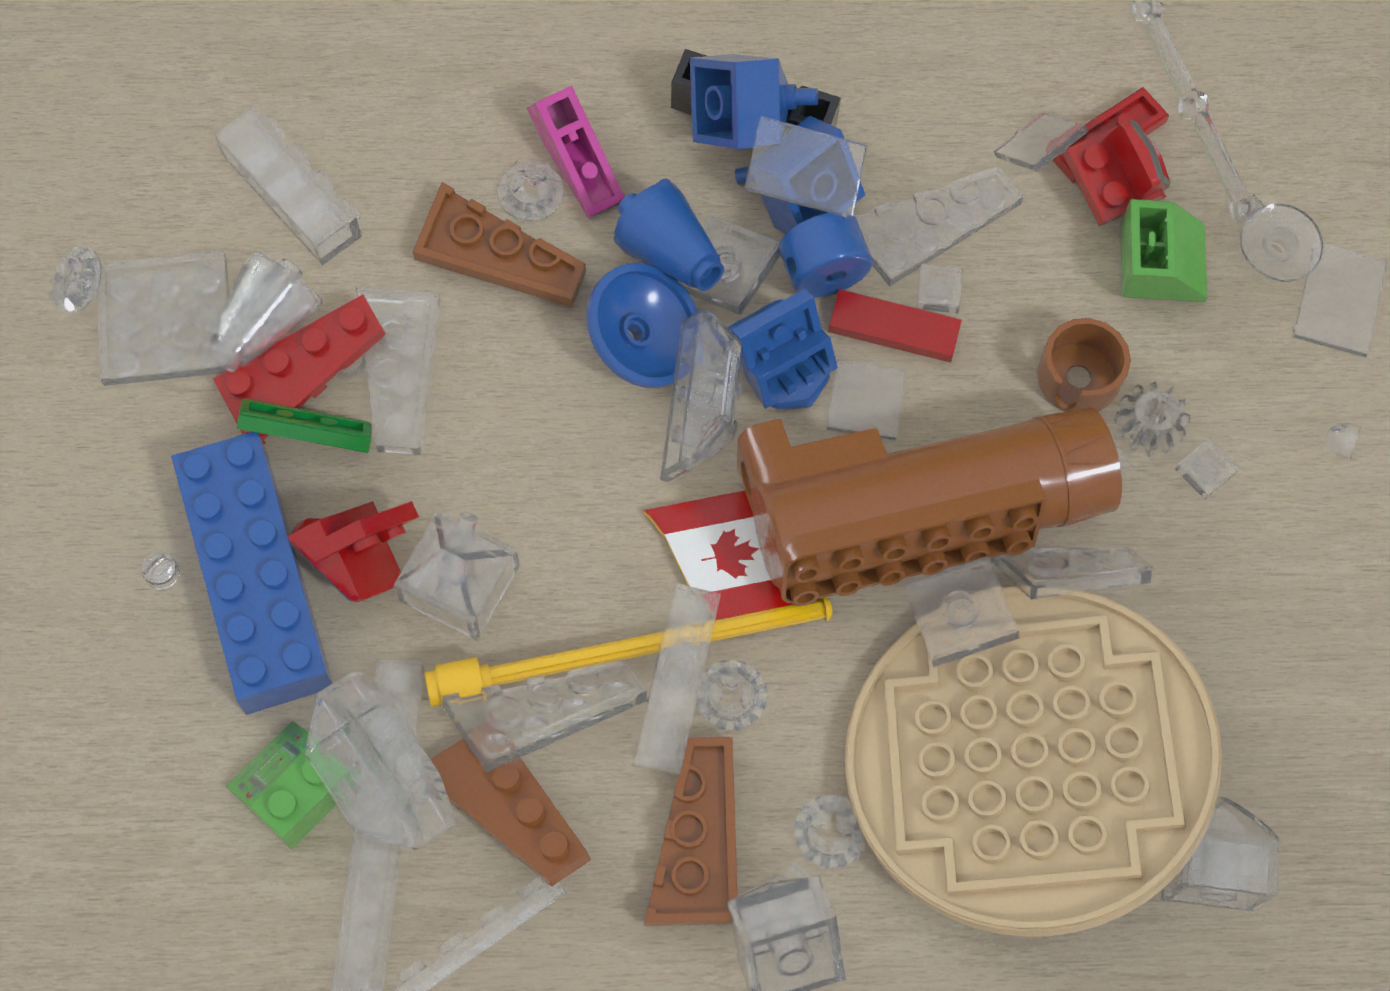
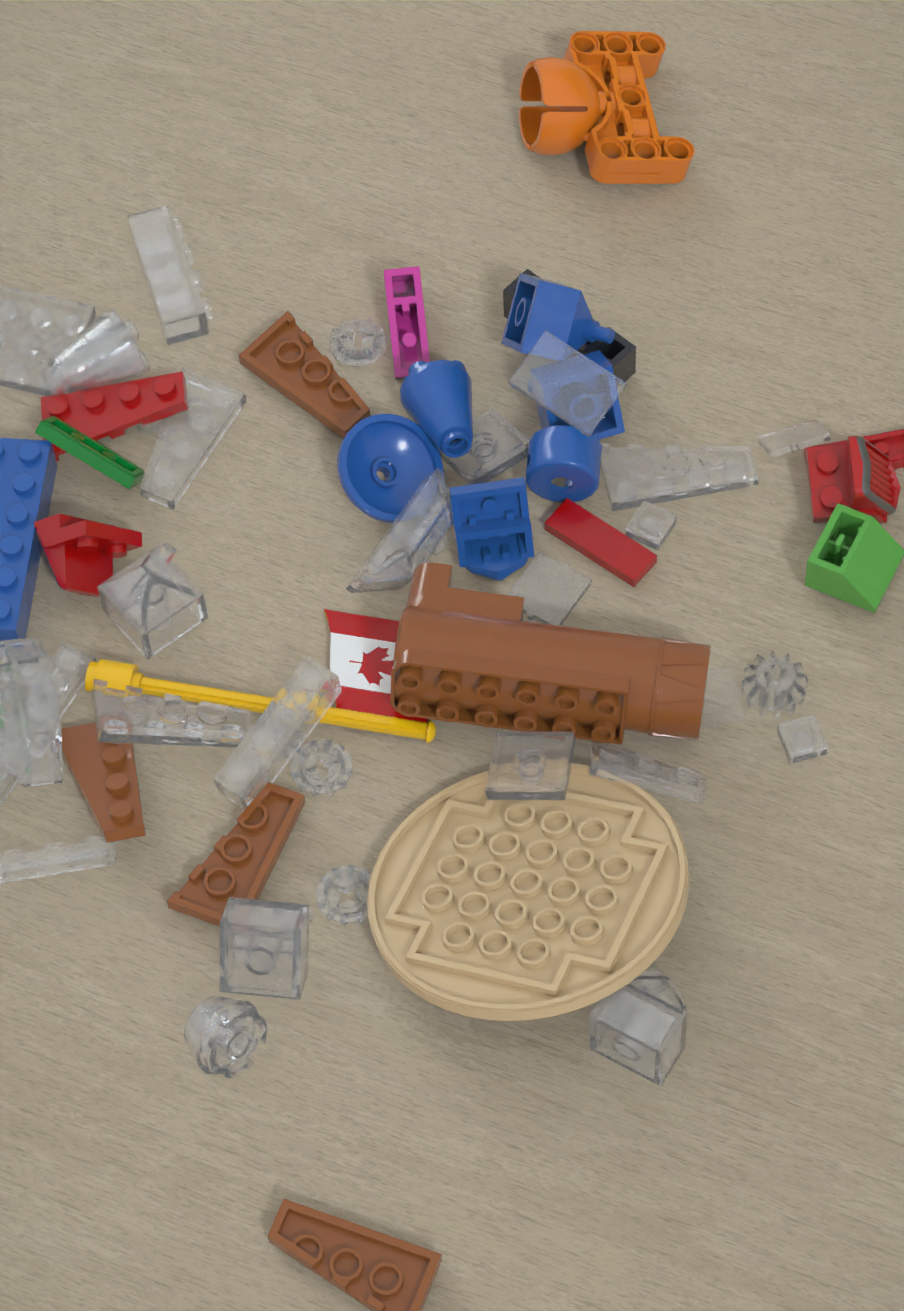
camera: 30 degrees right, 10 degrees down
(1090, 346) = (743, 606): dark orange piece -> none

